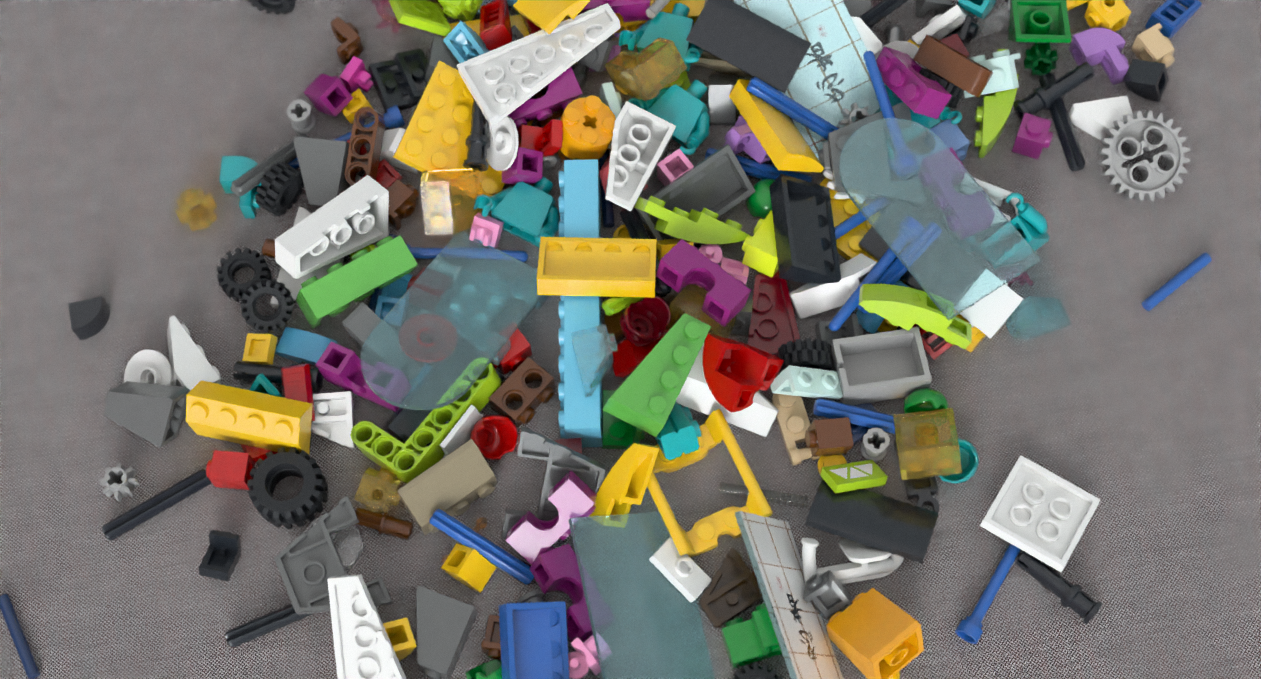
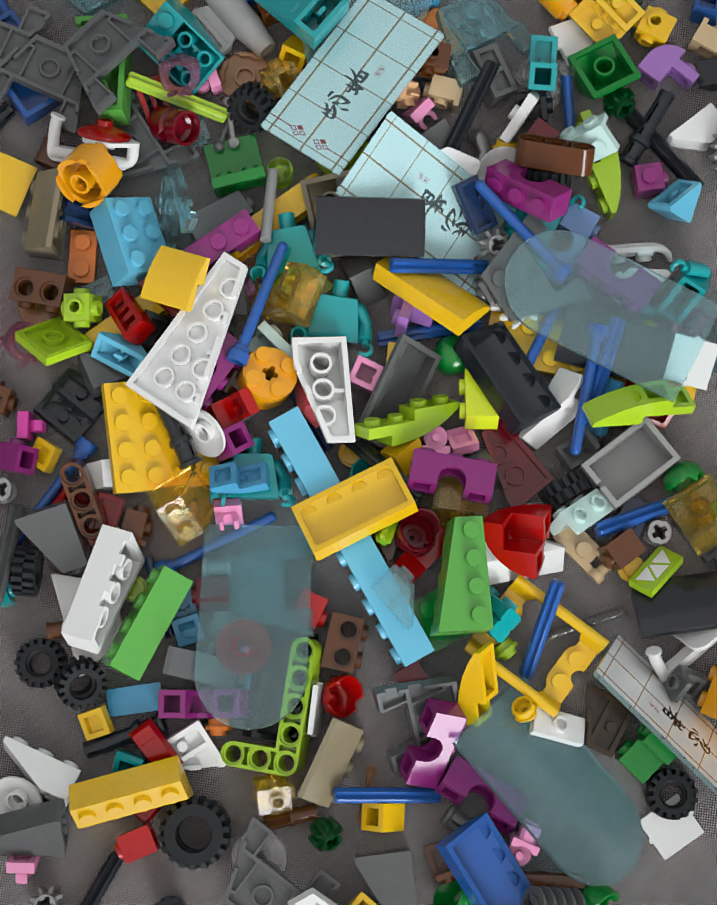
camera: 30 degrees left, 15 degrees up
(118, 438) = (22, 866): none -> bright pink tile
(366, 408) = (217, 728): none -> orange plate
(405, 553) = (325, 834): none -> dark green gear
(505, 196) = (235, 479): none -> dark azure slope
(571, 90) = (239, 352): none -> blue piece
(656, 532) = (520, 705): none -> yellow plate
(670, 476) = (505, 649): none -> lime plate
(714, 468) = (542, 628): none -> blue axle
(855, 78) = (474, 206): none -> dark blue plate
(993, 35) = (568, 103): none -> blue bar
(1049, 167) = (677, 200): none -> medium azure slope

